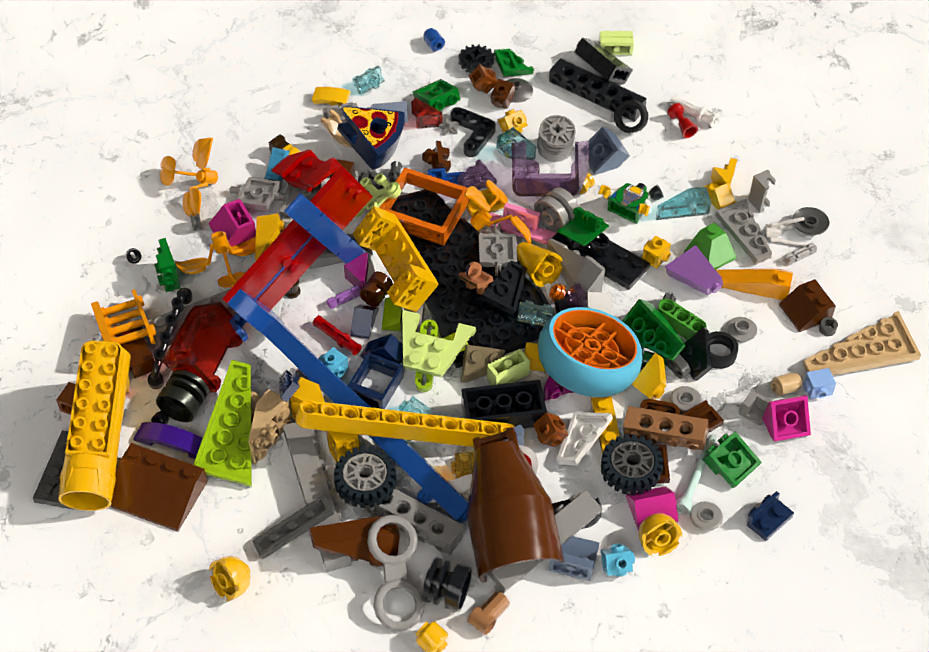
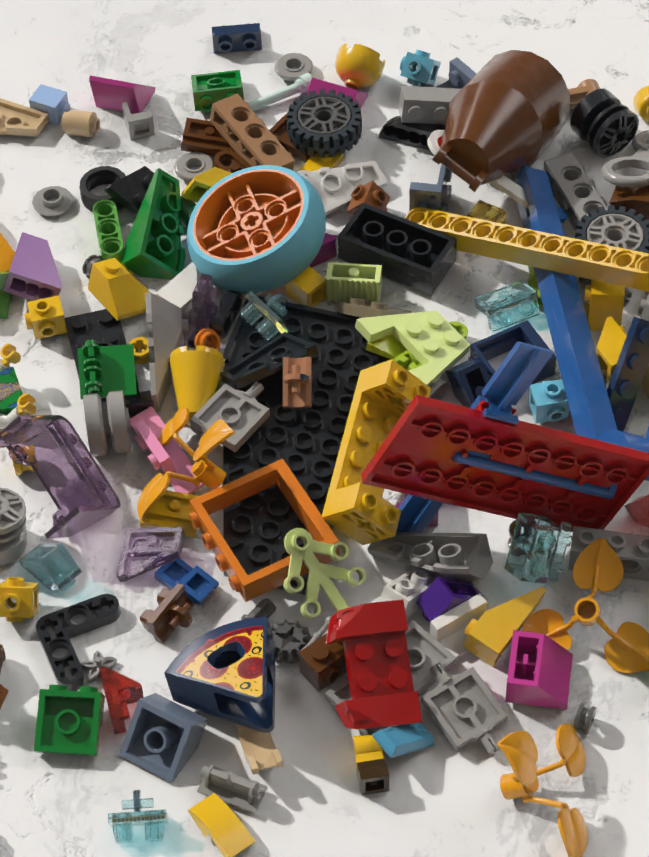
camera: 140 degrees left, 0 degrees up
(630, 287) = (117, 289): none -> yellow slope

